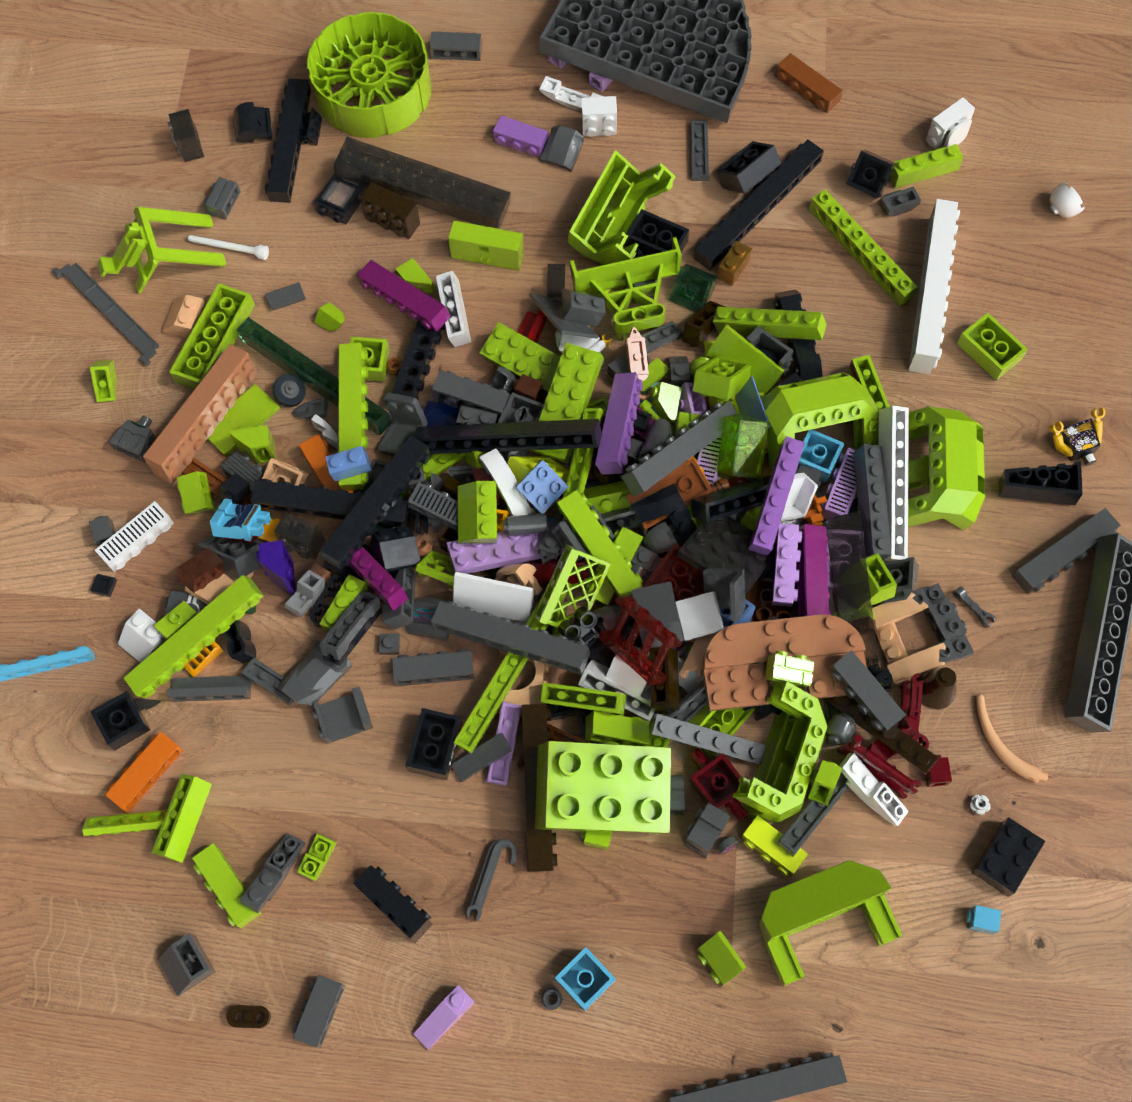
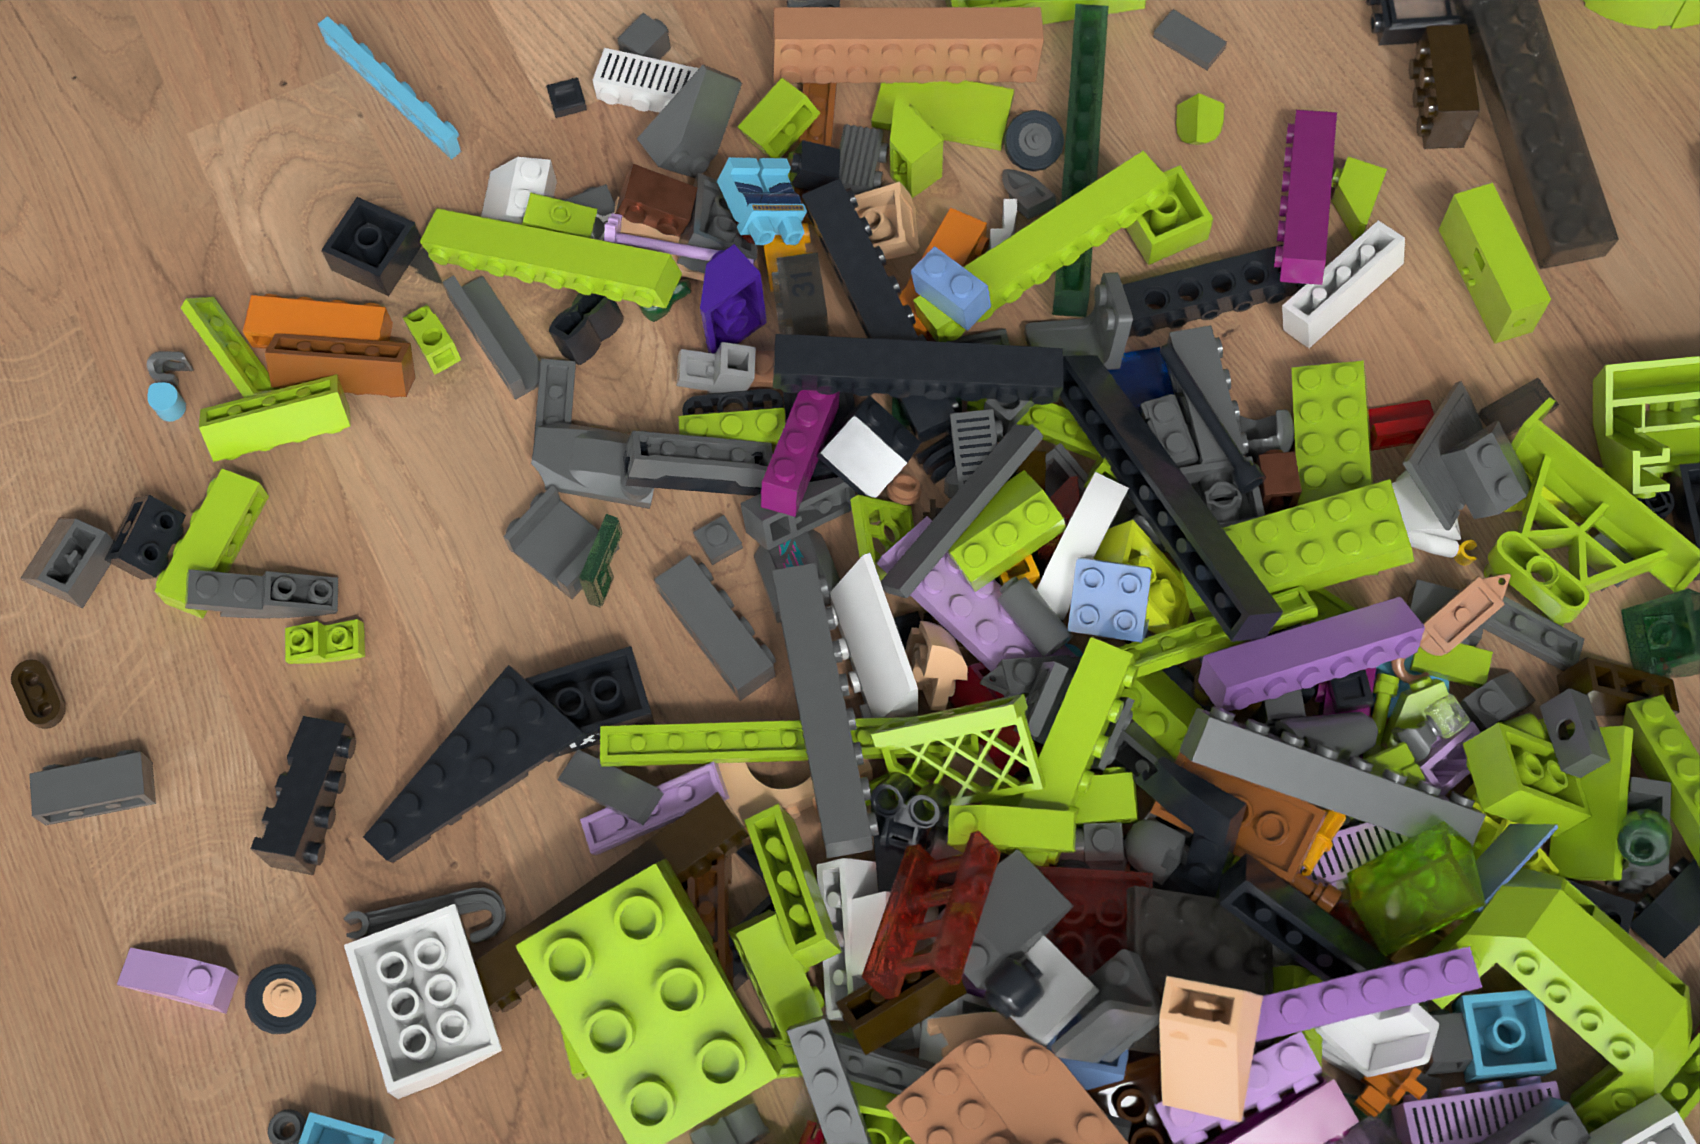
camera: 60 degrees right, 0 degrees up
(128, 869) = (162, 394): none -> leg
(172, 532) = (692, 123): none -> dark grey slope
(183, 759) = (360, 364): none -> dark orange brick
(190, 719) = (432, 339): none -> lime leg
(202, 917) = (146, 537): none -> black brick
(209, 598) = (614, 235): none -> lavender piece
(212, 655) = (541, 304): light orange slope -> none
(373, 704) = (597, 573): none -> clear green tile
(394, 362) = (1183, 255): dark orange plate -> none
(430, 804) = (484, 755): none -> black wing
(459, 522) = (961, 511): none -> dark grey tile
(487, 968) = (280, 999): none -> black wheel
(520, 398) = (1246, 474): none -> black piece
(531, 897) = (423, 1001): none -> white slope
(620, 587) = (1013, 828): none -> lime slope
(678, 391) = (1443, 718): none -> leg
(693, 625) = (1014, 987): none -> black head
(723, 347) = (1586, 747): none -> dark grey piece
(766, 561) = (1207, 1047): none -> light nougat slope
(775, 348) = (1644, 837): none -> clear green head

